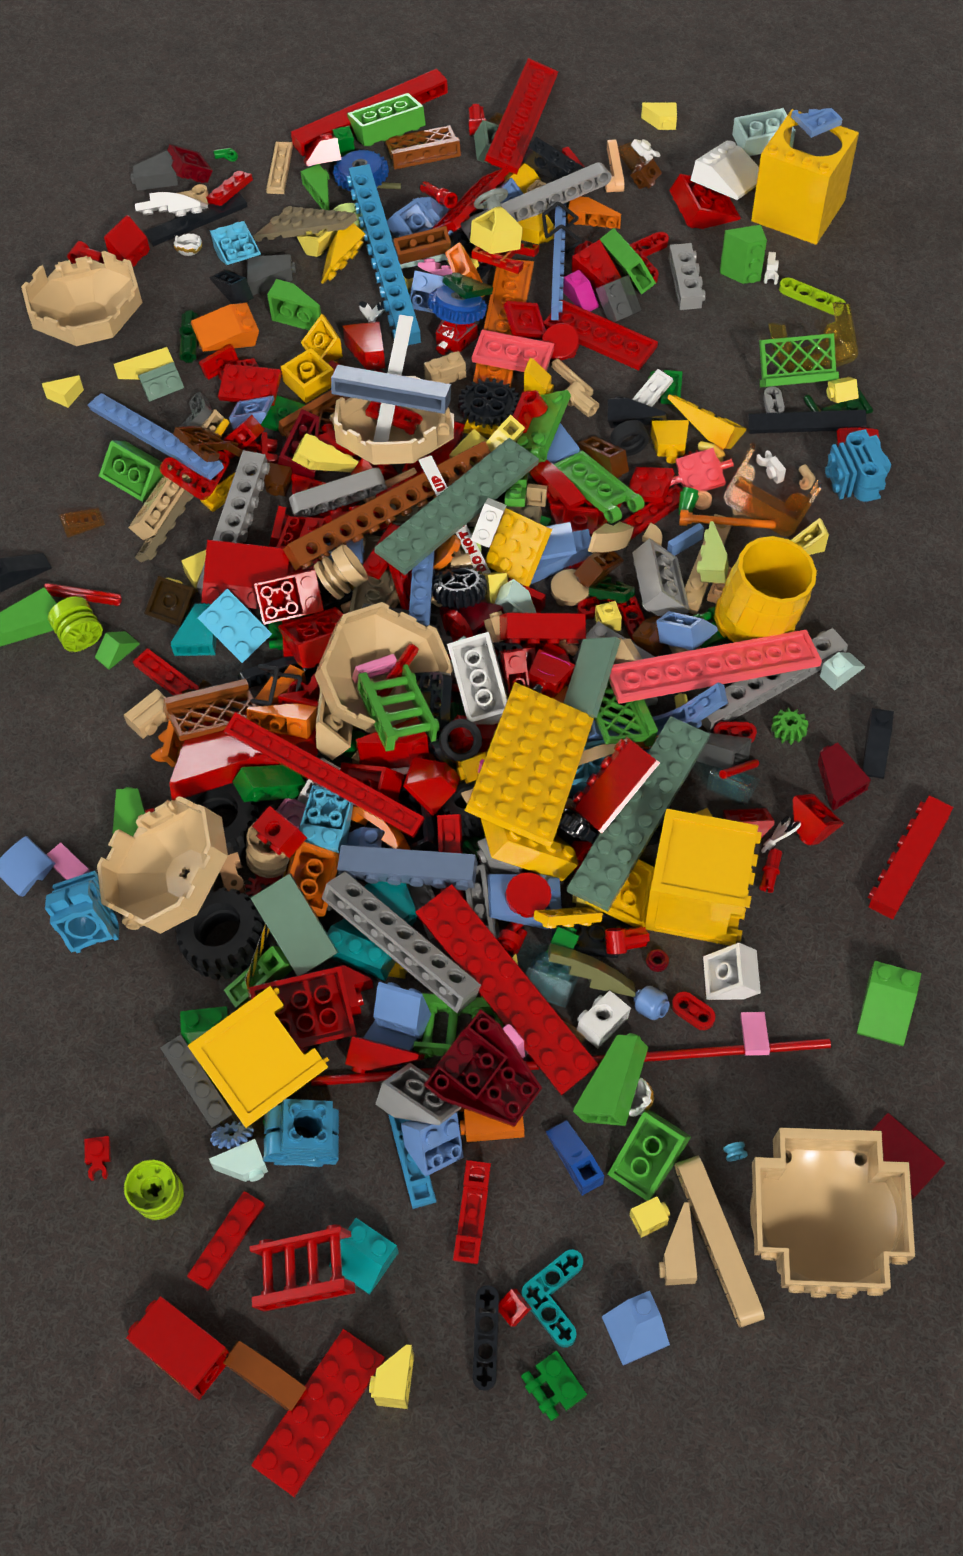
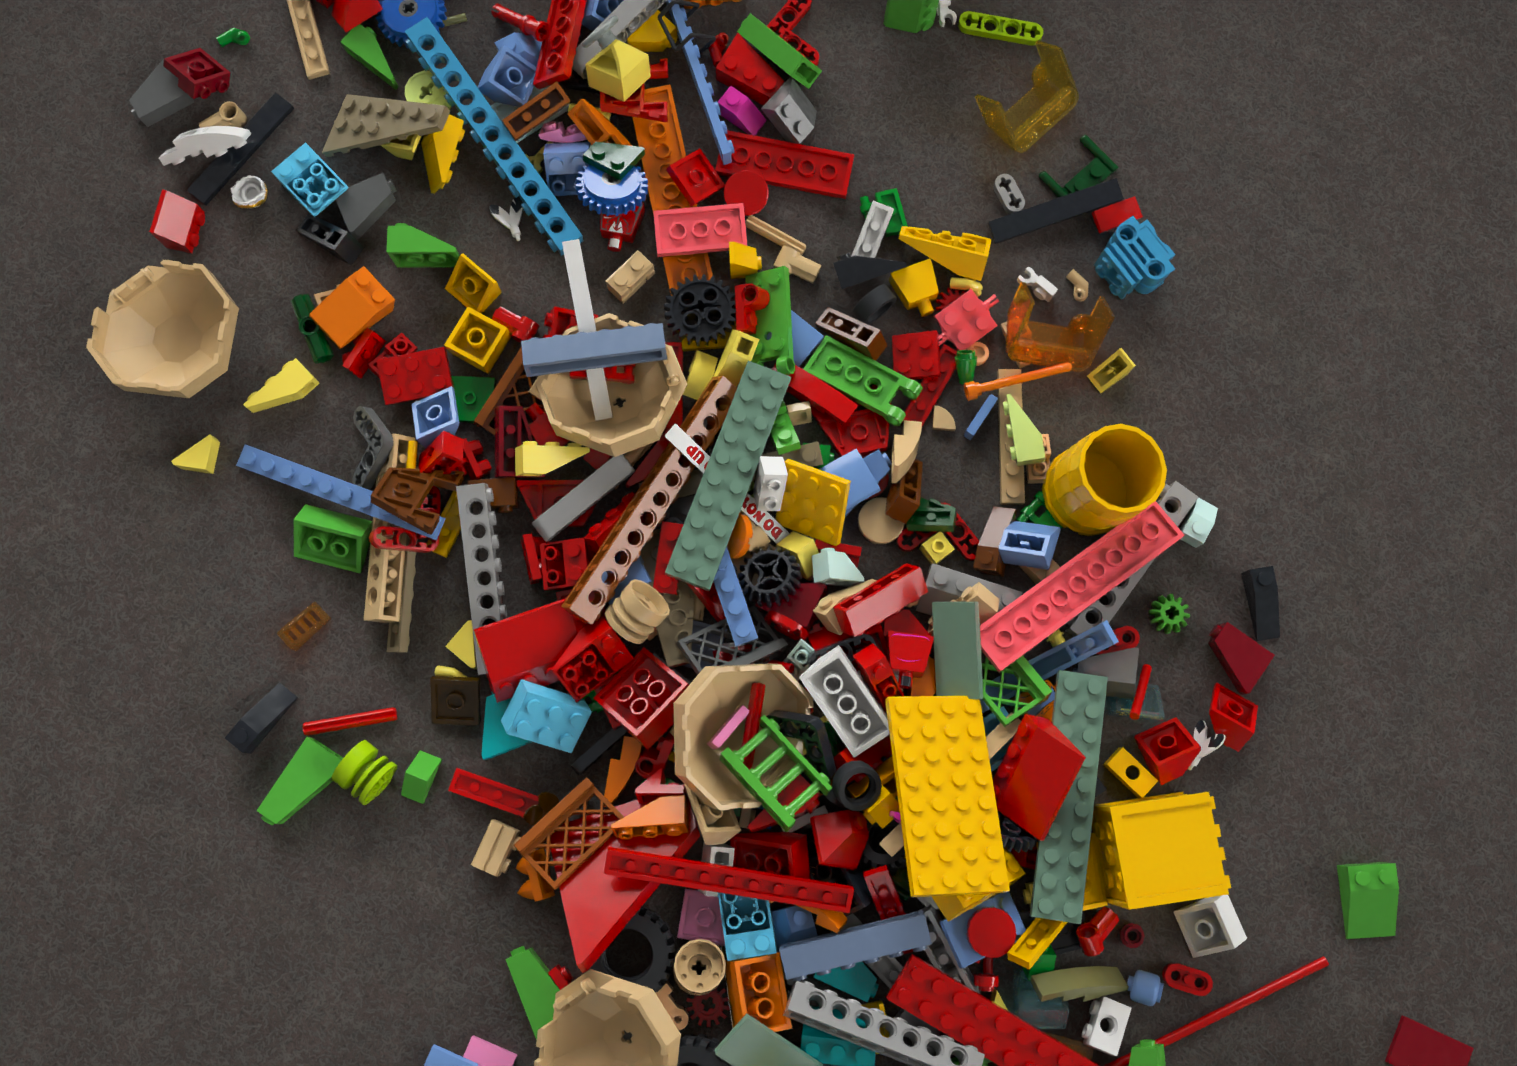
camera: 25 degrees left, 20 degrees up
(81, 249) = (128, 250): red piece -> none
(161, 381) = (309, 406): sand green plate -> none
(229, 188) = (262, 91): red plate -> none
(268, 783) = (661, 907): green brick -> none
(275, 670) = (629, 789): black piece -> none
(277, 830) = (725, 965): red brick -> none
(366, 344) = (526, 272): red slope -> none
(659, 579) = (976, 484): light grey slope -> none
(686, 276) = (842, 17): light grey brick -> none
(755, 1033) = (1255, 982): bright pink tile -> none
(771, 870) = (1206, 783): red axle -> none
(798, 377) = (1033, 152): bright green fence -> none
(842, 389) = (1080, 155): light yellow brick -> none
(910, 857) = (1338, 725): red brick -> none

